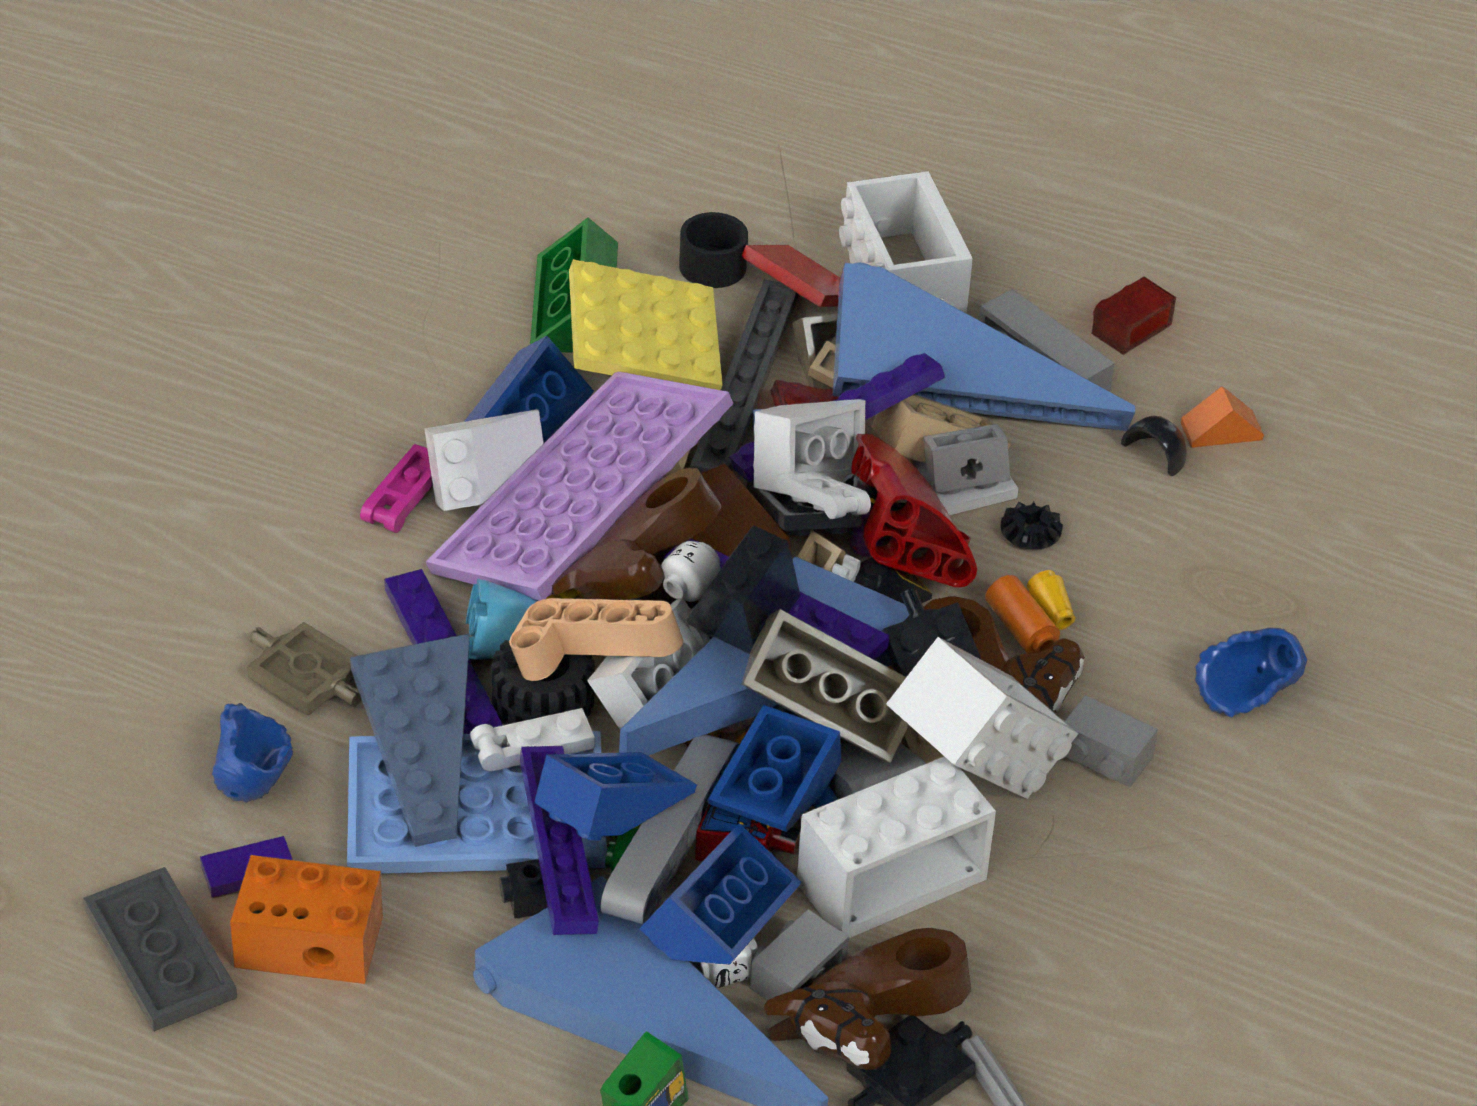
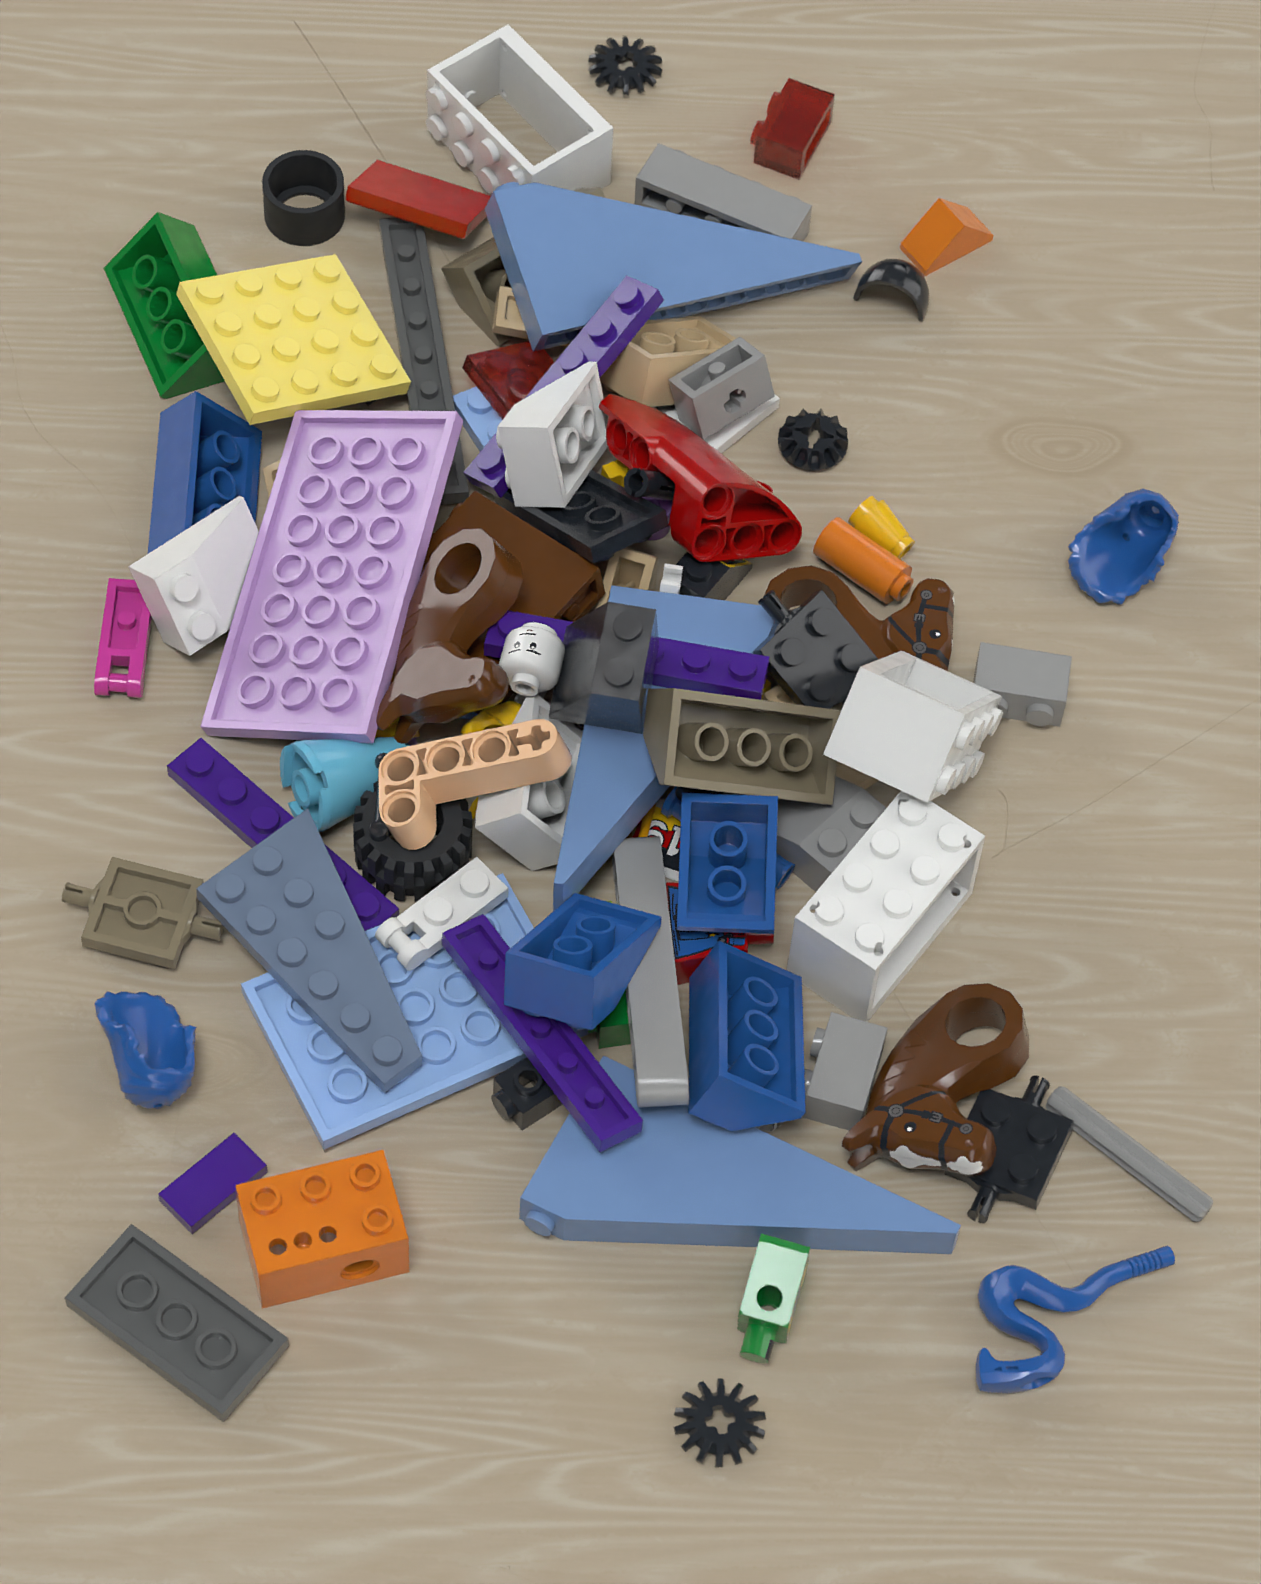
camera: 25 degrees left, 15 degrees up
(824, 493) = (615, 501): white plate -> none
(1038, 243) = (630, 77): none -> black gear

